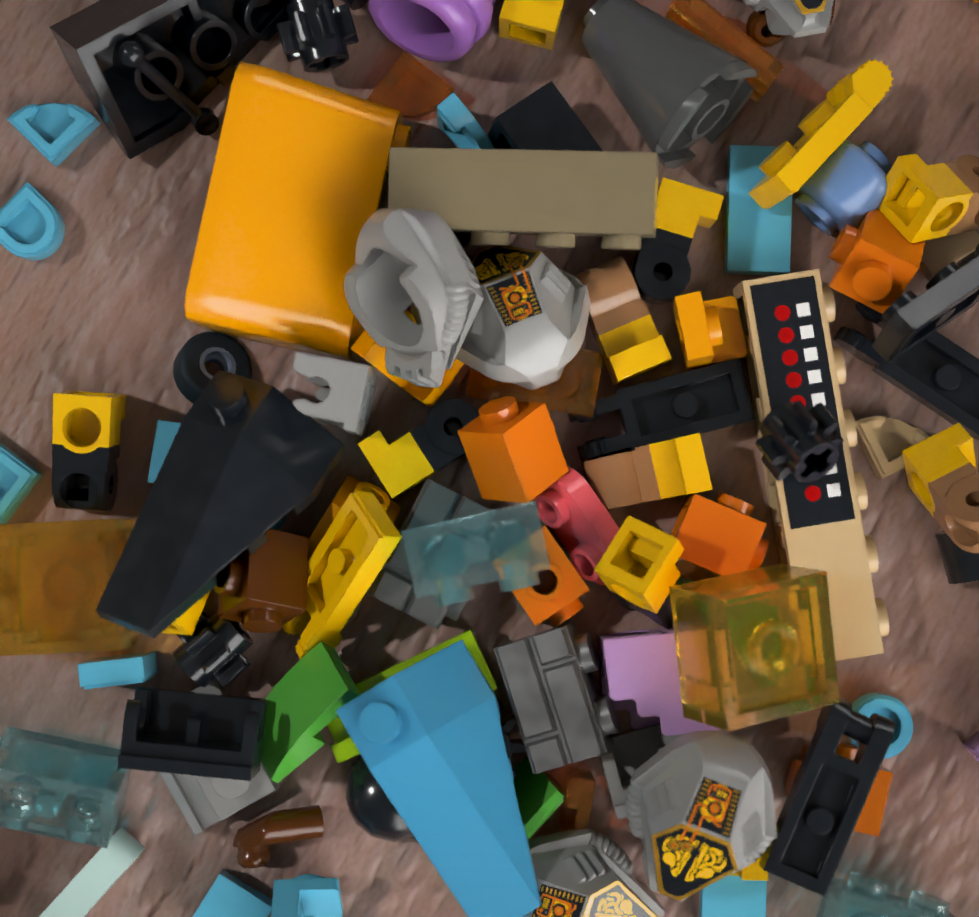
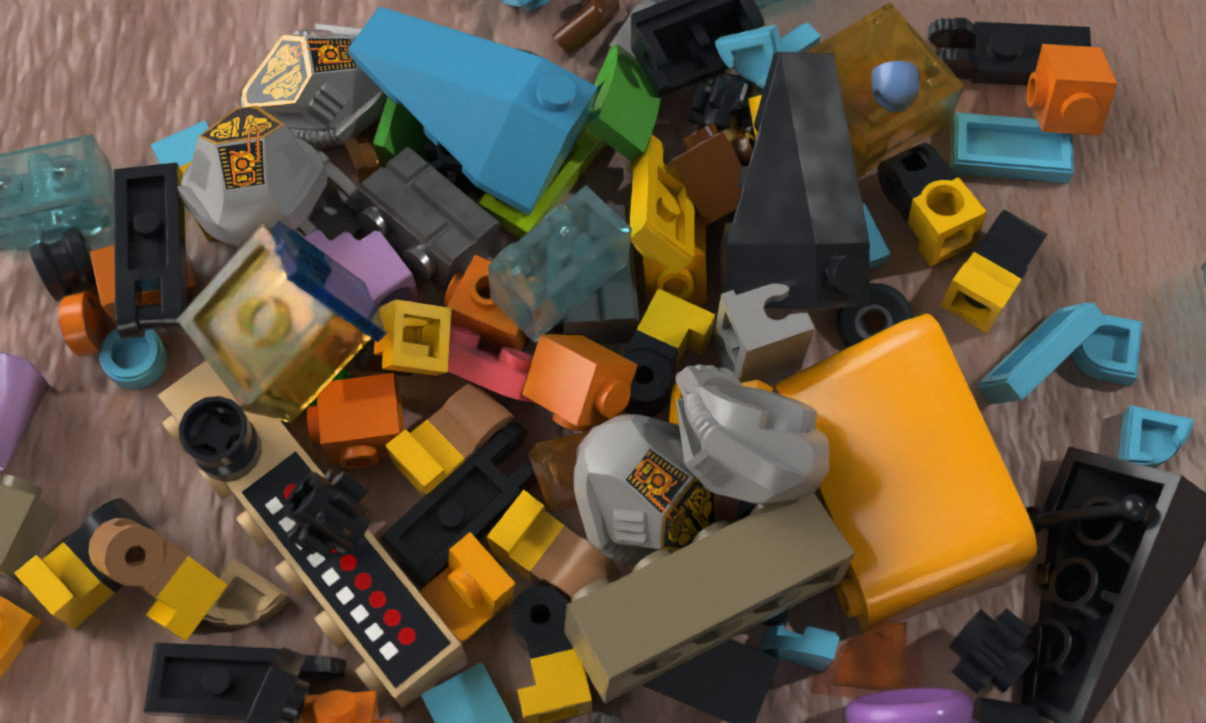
camera: 150 degrees right, 20 degrees down
(42, 572) = (895, 85): none -> medium blue hinge
(75, 349) = (993, 270): none -> leg
(94, 247) = (1040, 353): none -> medium azure tile
(156, 676) = (750, 52): none -> medium azure tile
(697, 645) = (327, 281): none -> clear blue piece
(868, 567) = (213, 425): none -> black wheel
(901, 850) = (64, 263): none -> black wheel
(913, 777) = (82, 323): none -> orange tile

